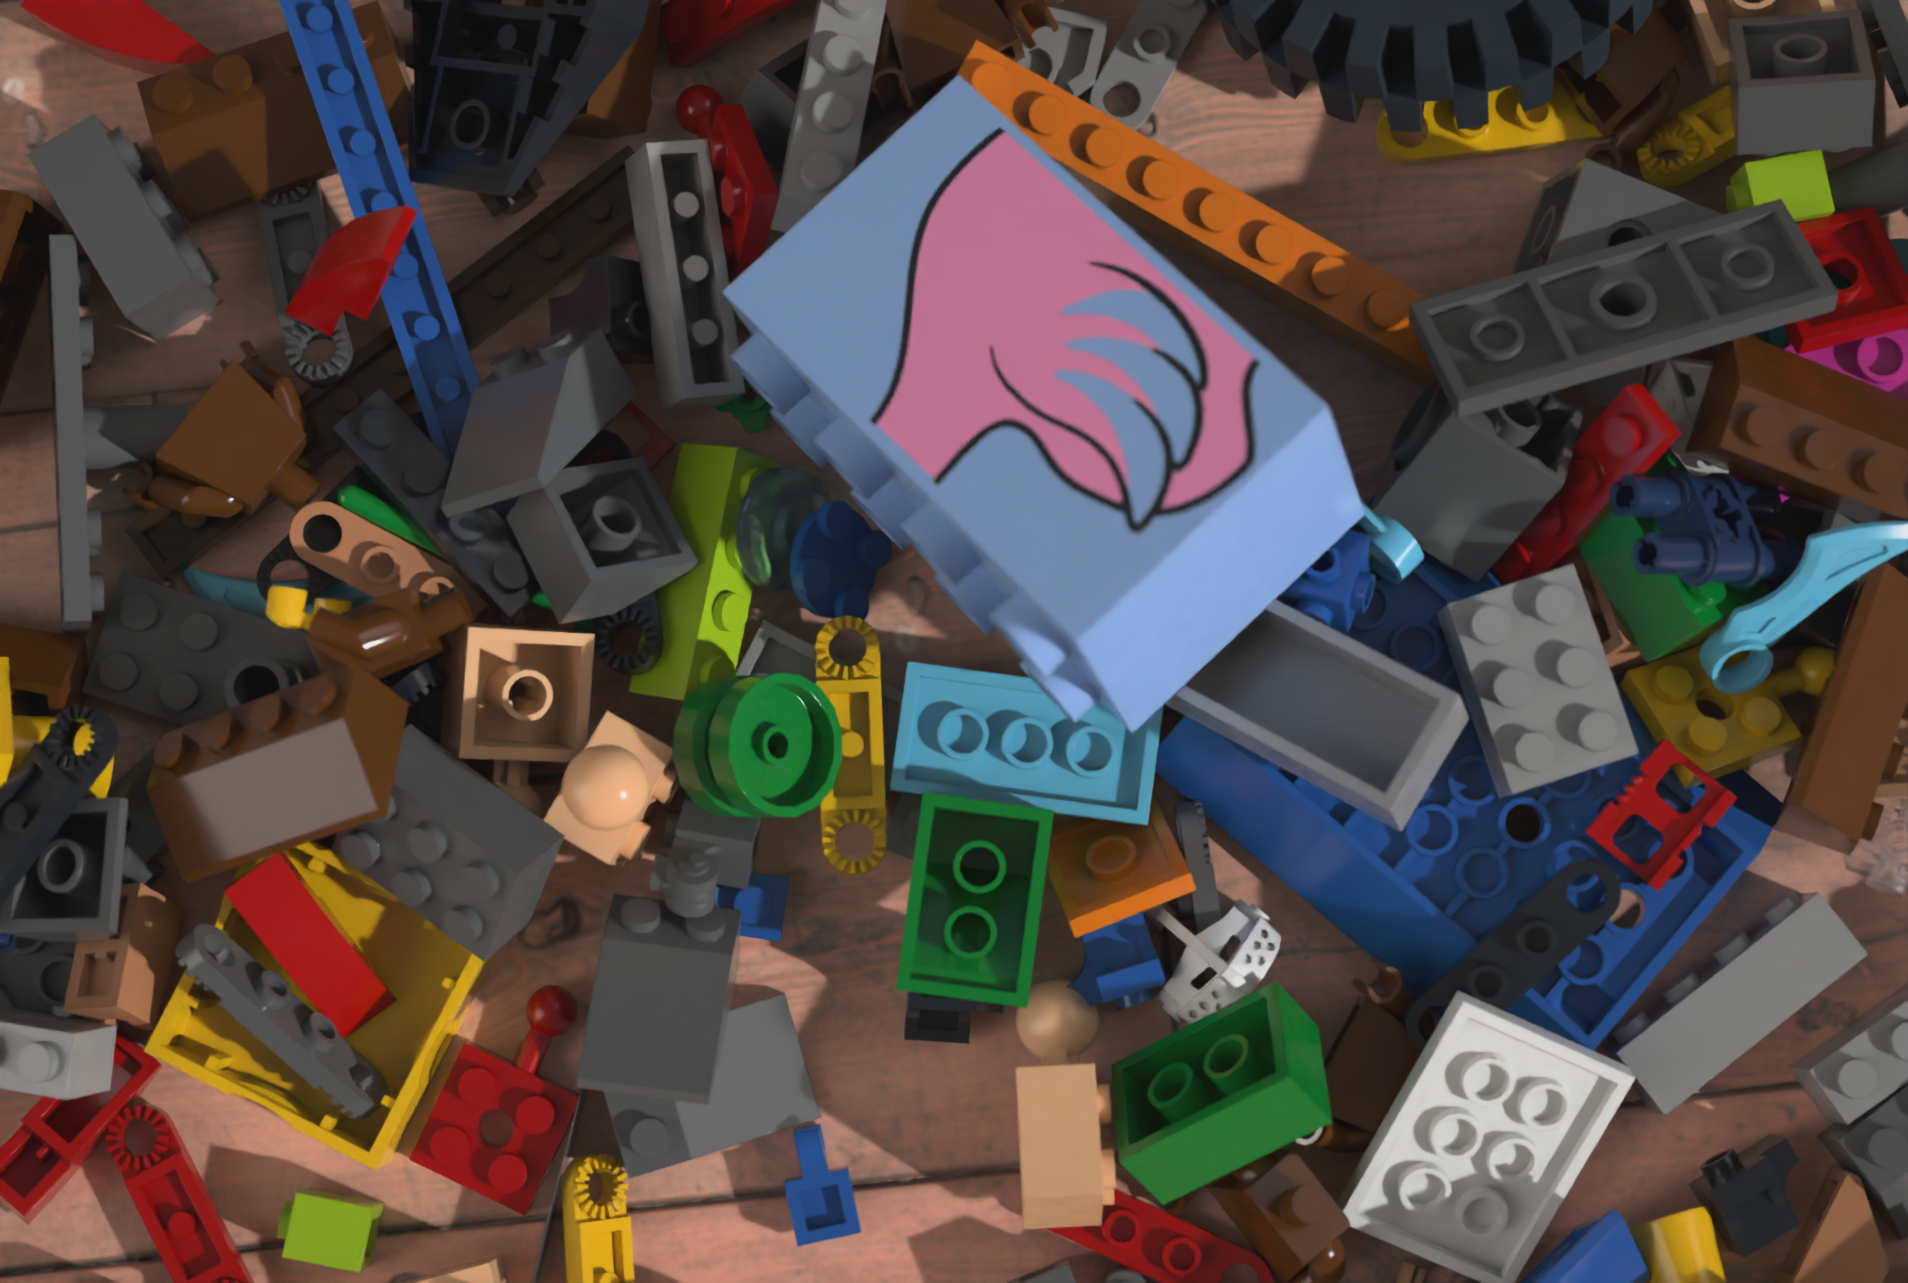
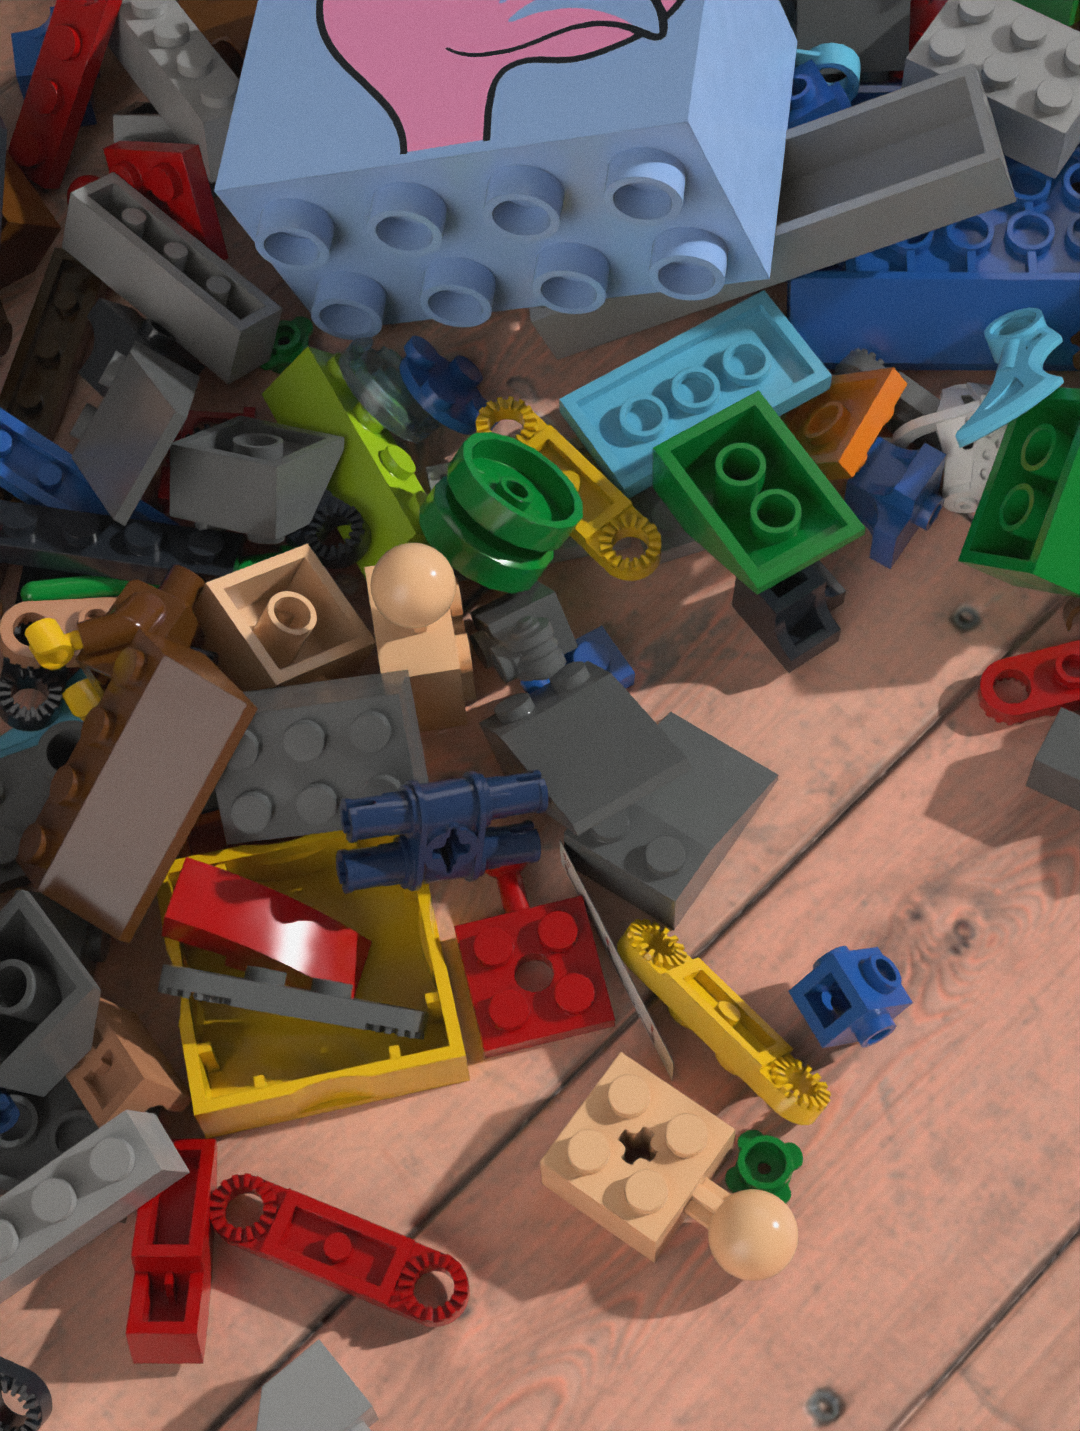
camera: 40 degrees left, 20 degrees down
(330, 1229) = (466, 1151): lime brick -> none
(483, 992) = (440, 830): none -> dark blue pin
(820, 1198) = (831, 824): blue plate -> none
(1062, 1113) = (961, 613): light nougat brick -> none
(1261, 990) = (1019, 347): none -> medium azure piece

